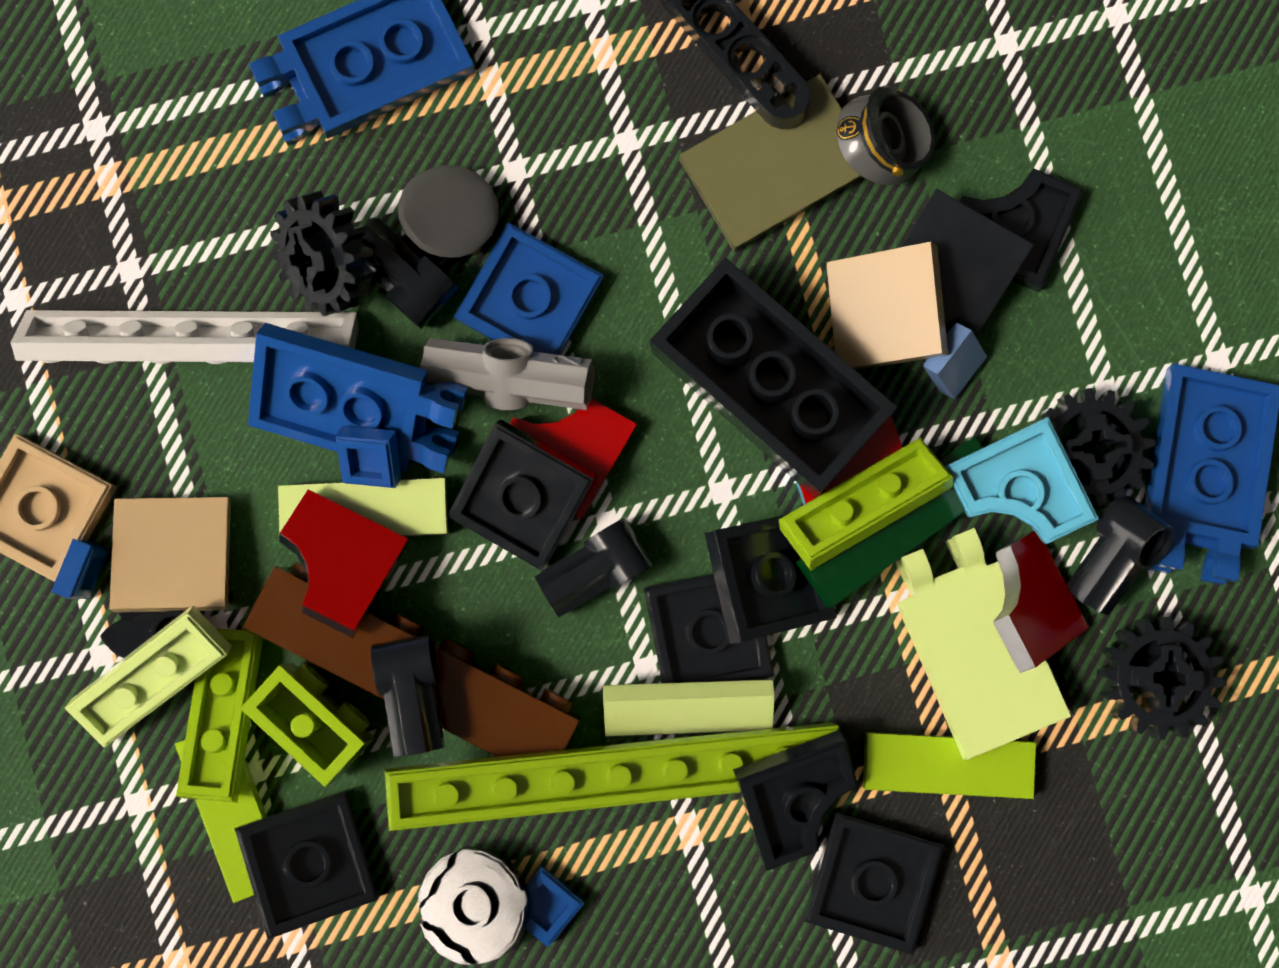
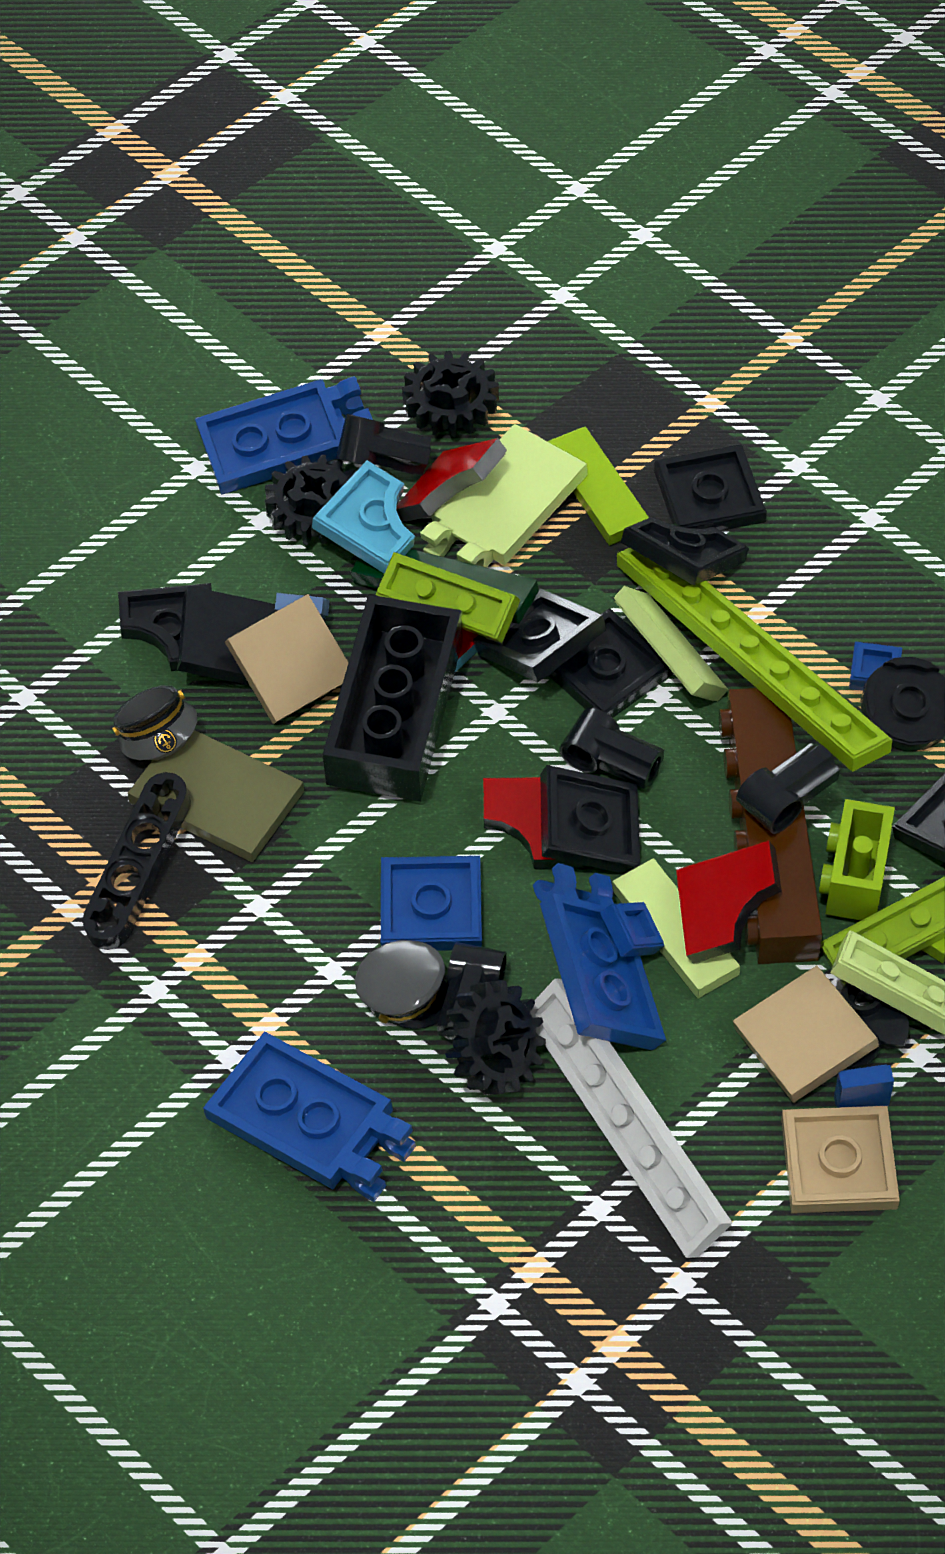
camera: 115 degrees left, 30 degrees down
(510, 373) = (502, 872): light grey piece -> none

